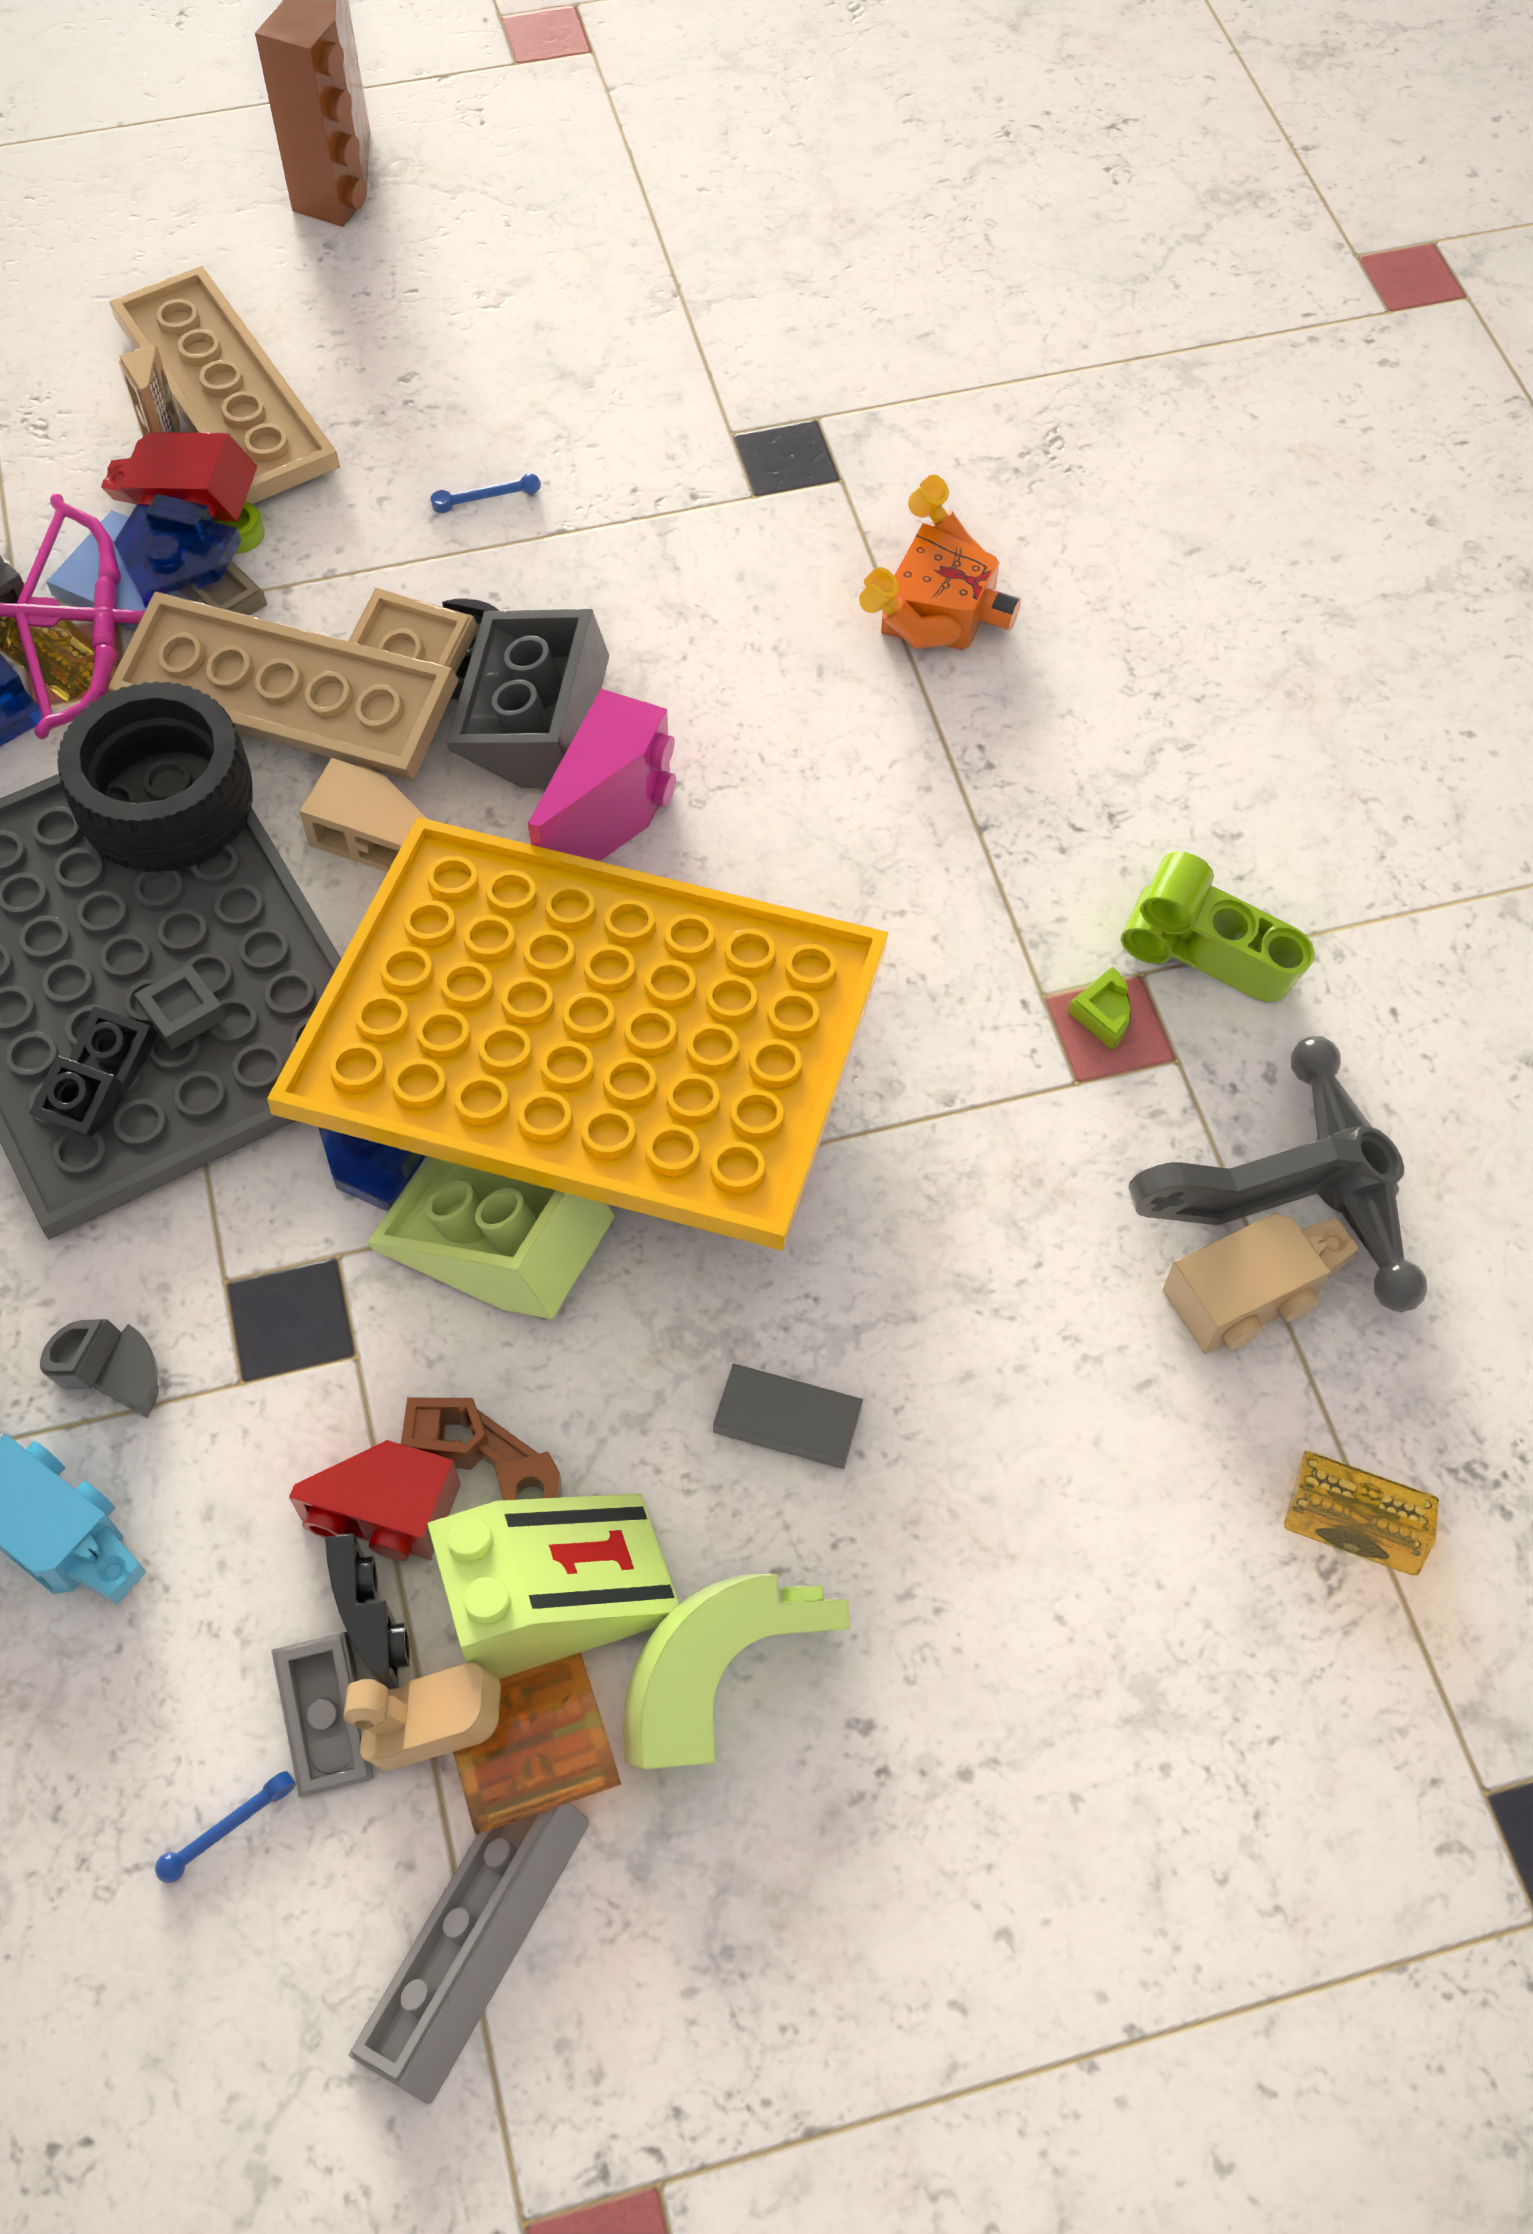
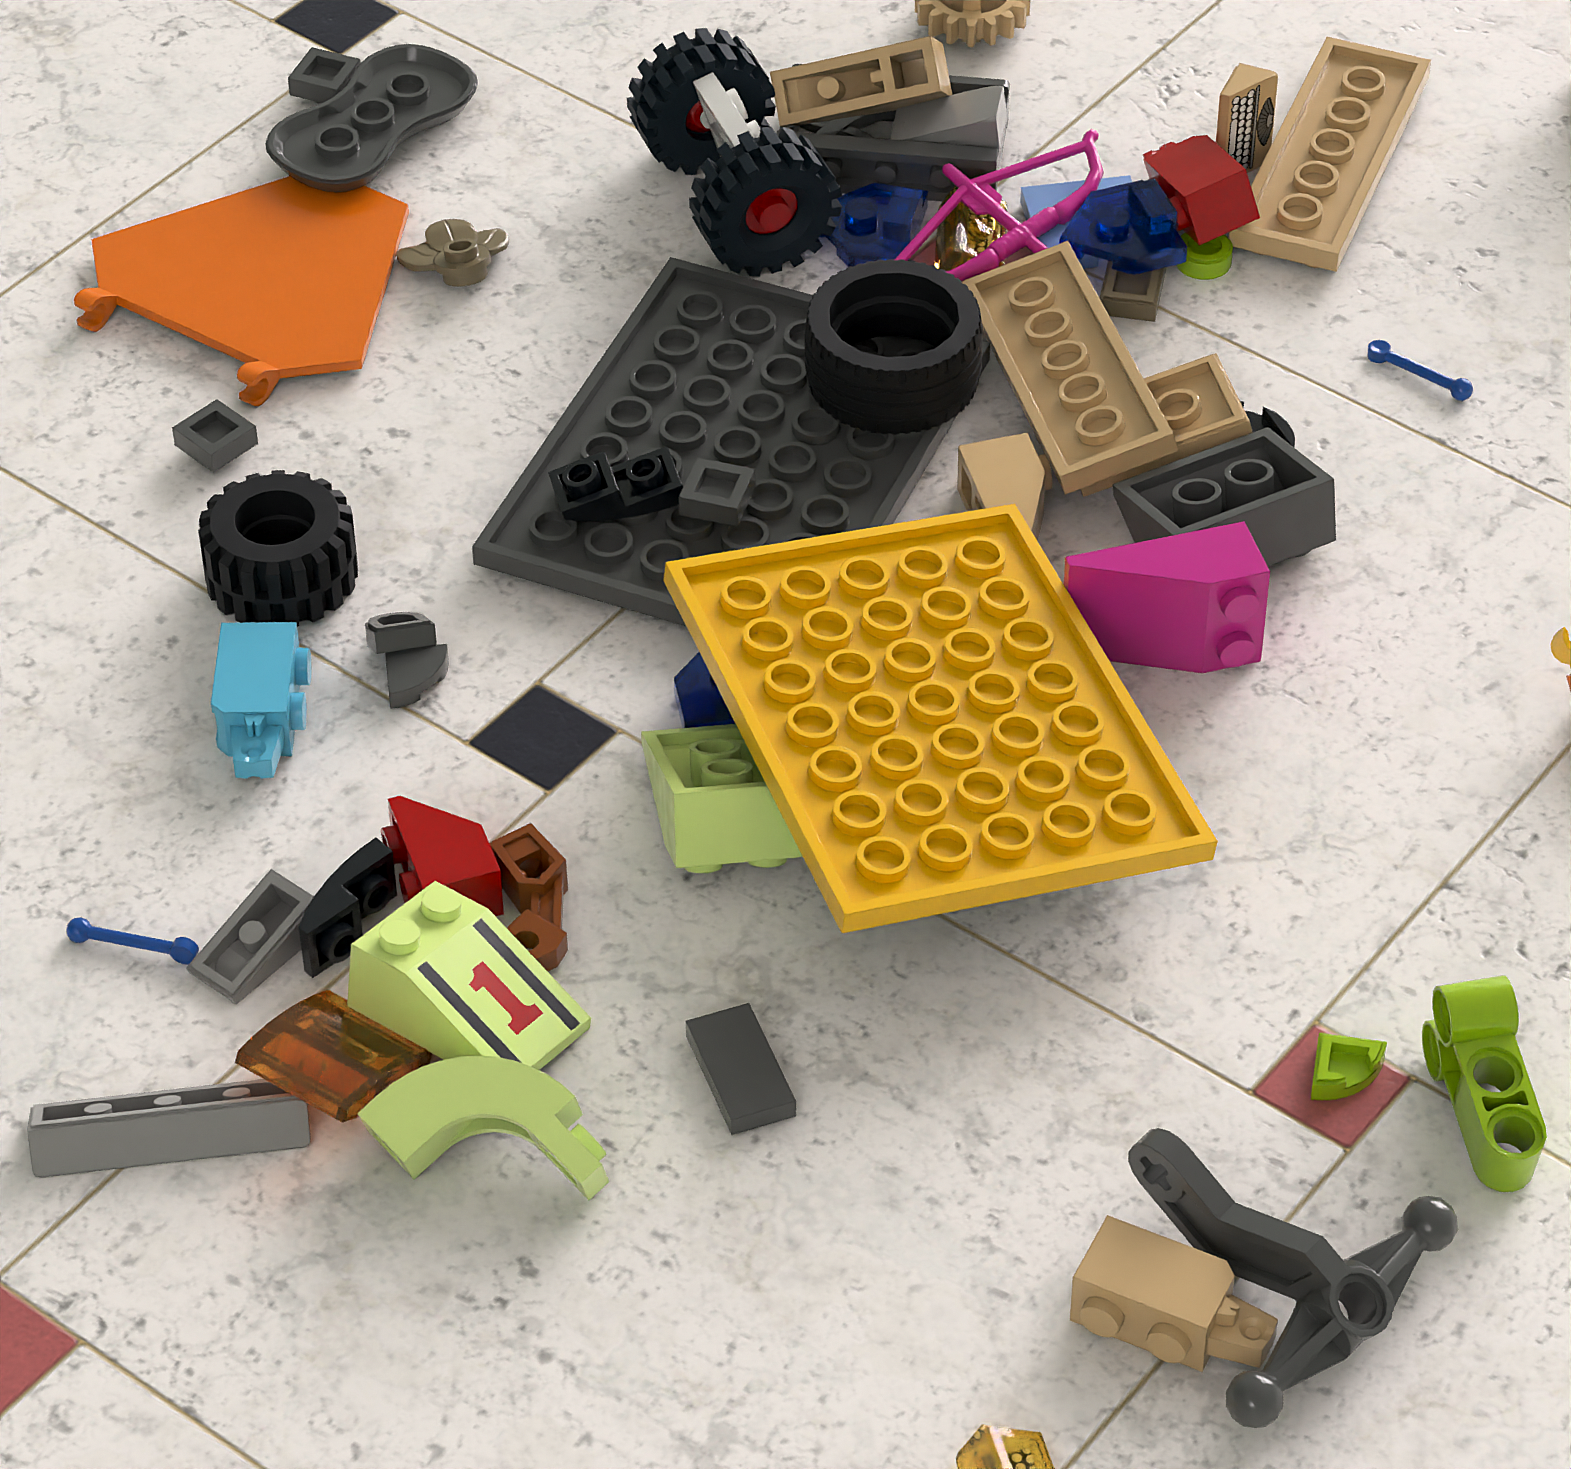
camera: 55 degrees right, 15 degrees down
(423, 1716) = (286, 979): tan piece -> none

